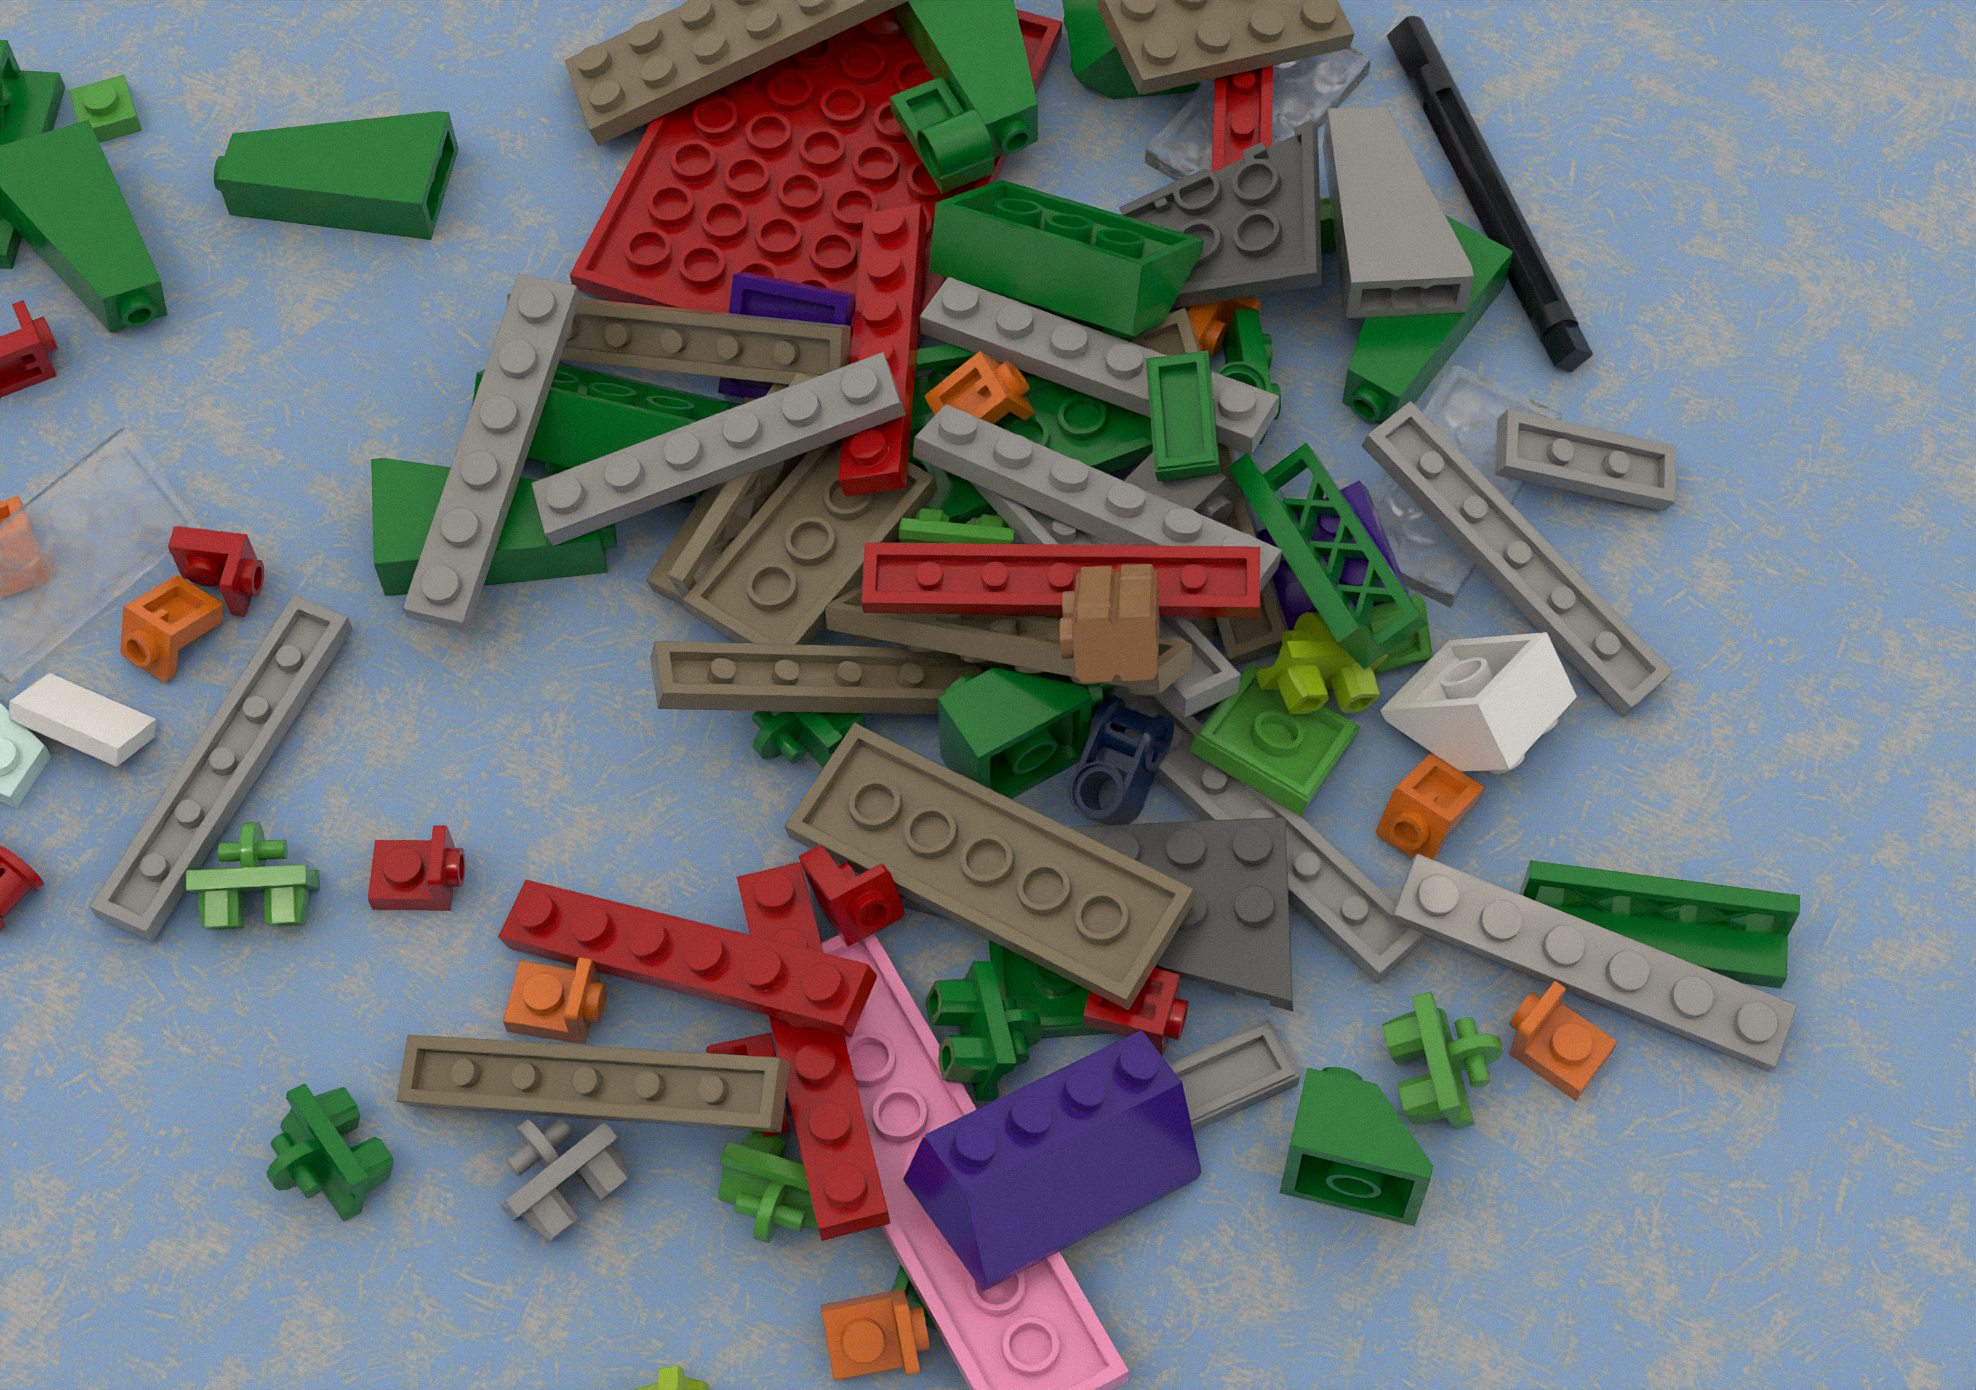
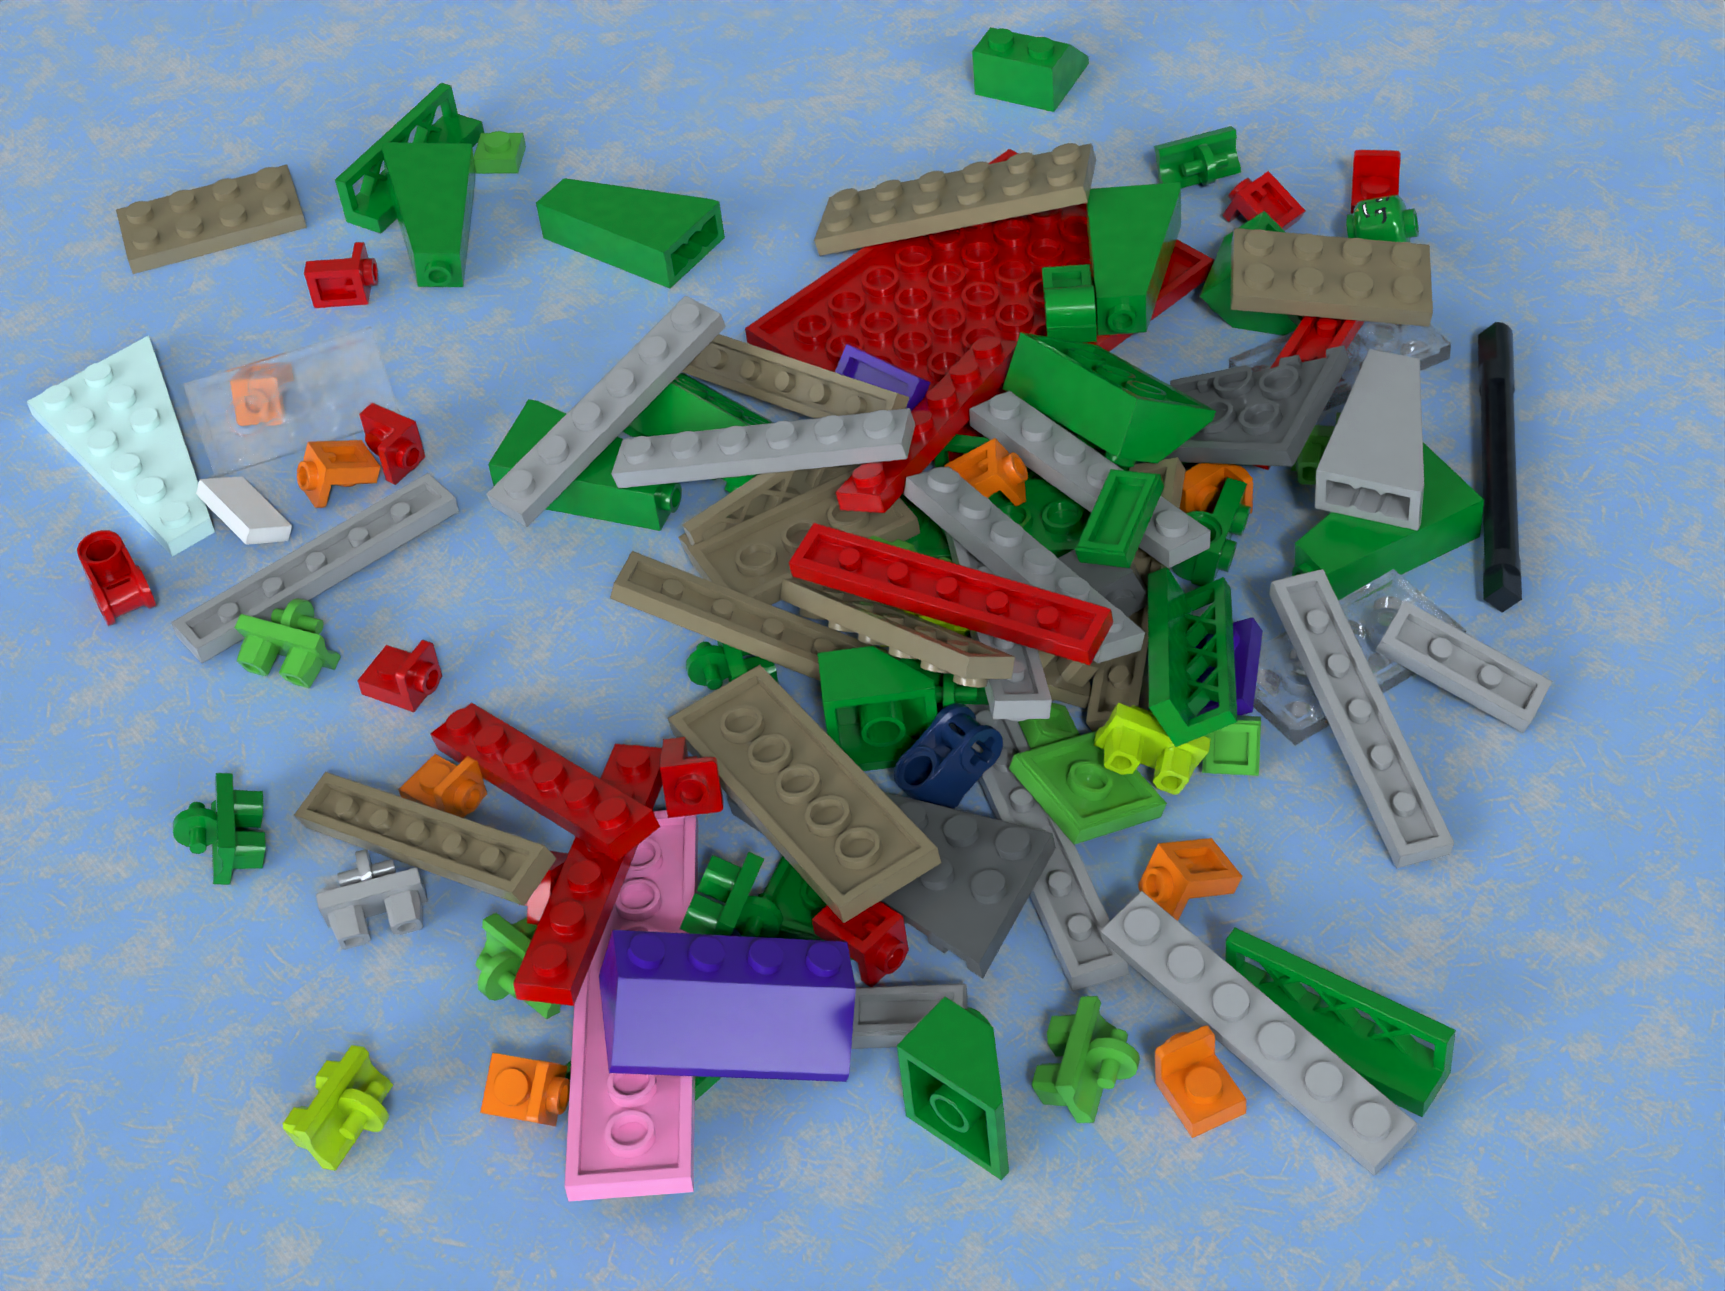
camera: 30 degrees right, 15 degrees down
(1112, 624) = (954, 617): medium nougat brick -> none
(1483, 700) = (1276, 813): white slope -> none

